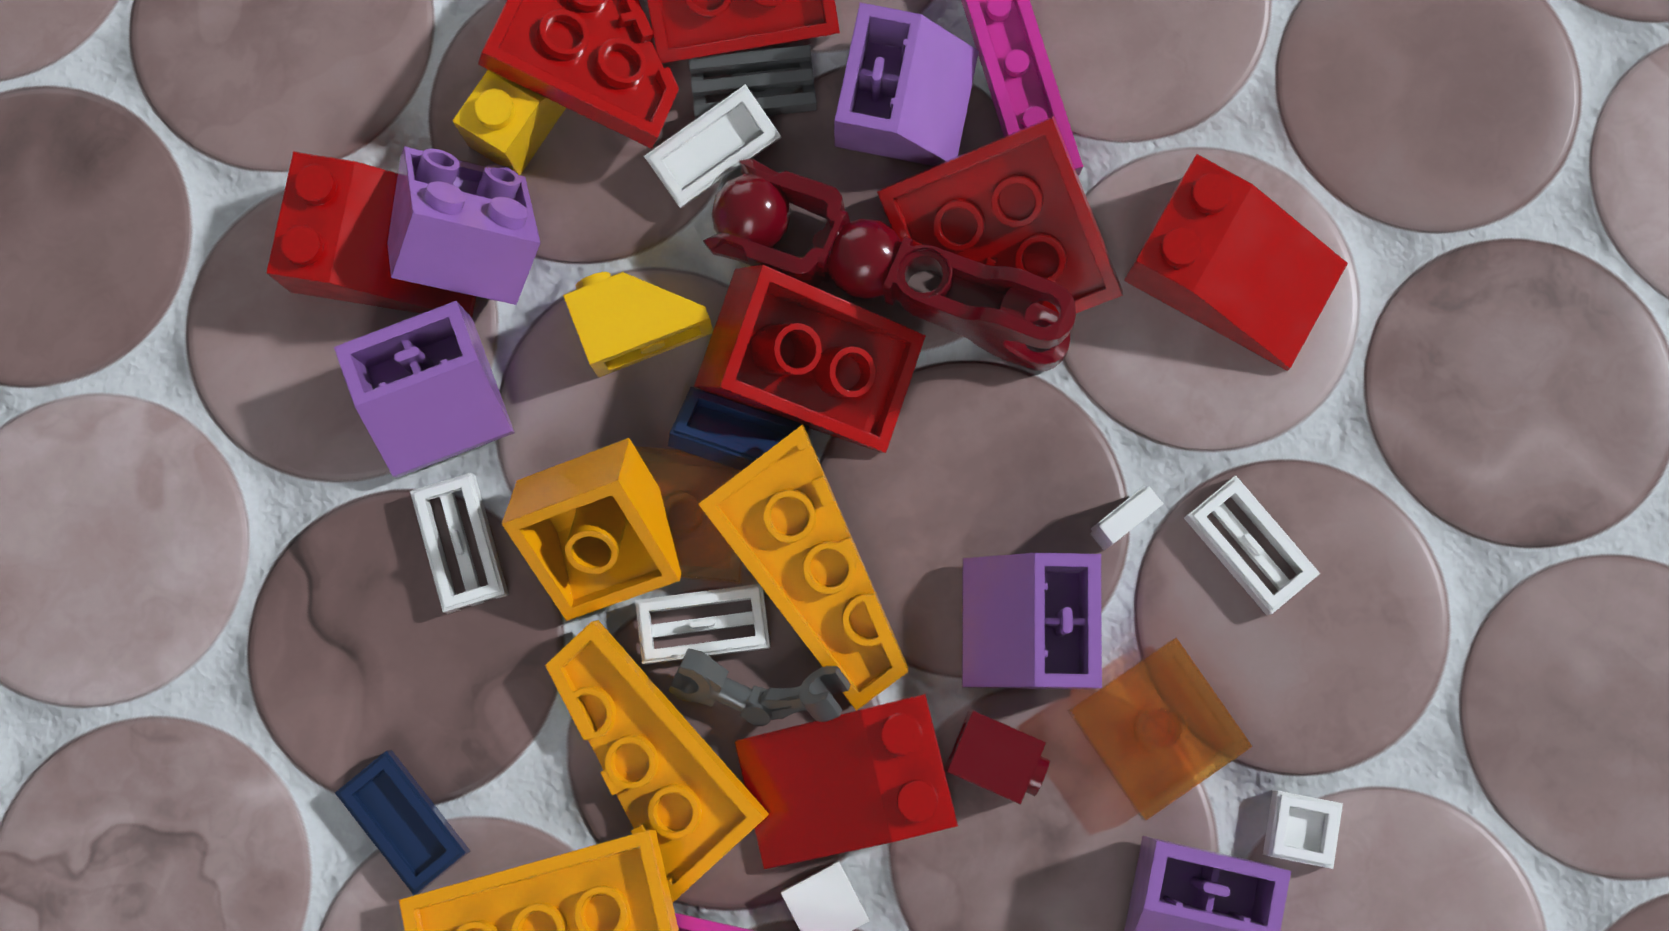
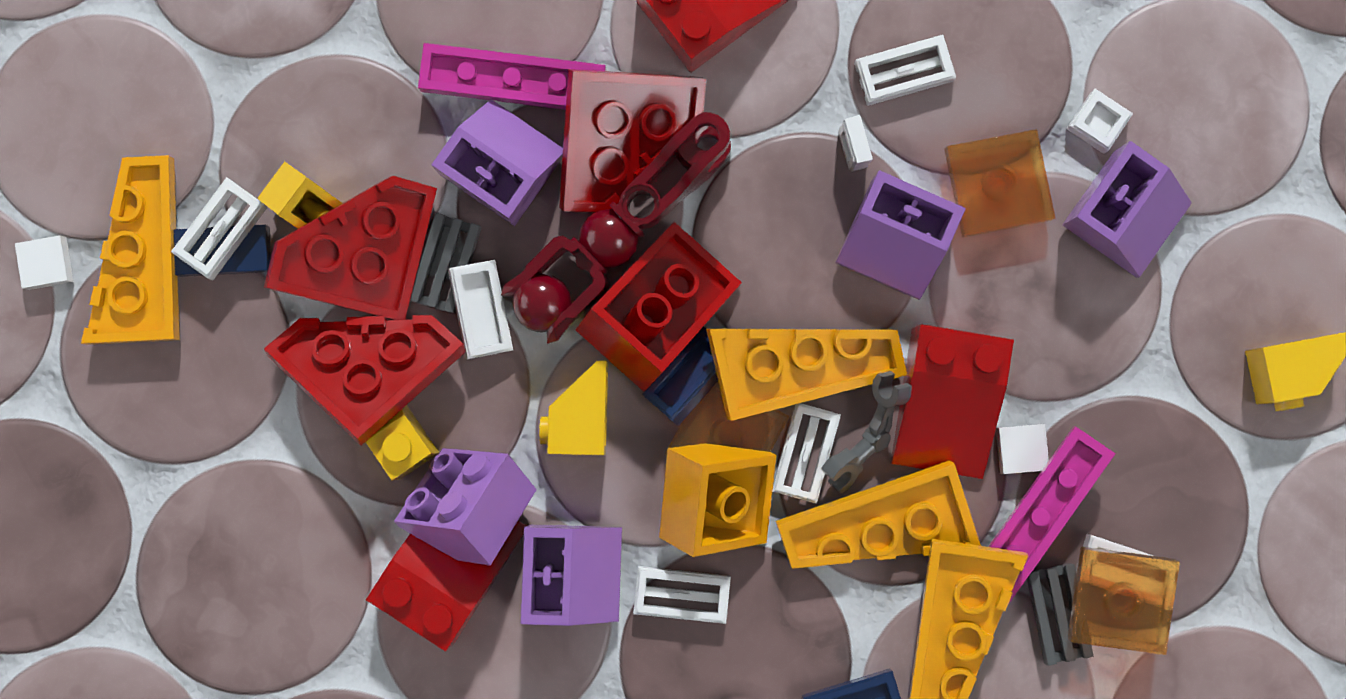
camera: 70 degrees left, 5 degrees up
(998, 758) = (976, 296): dark red brick -> none

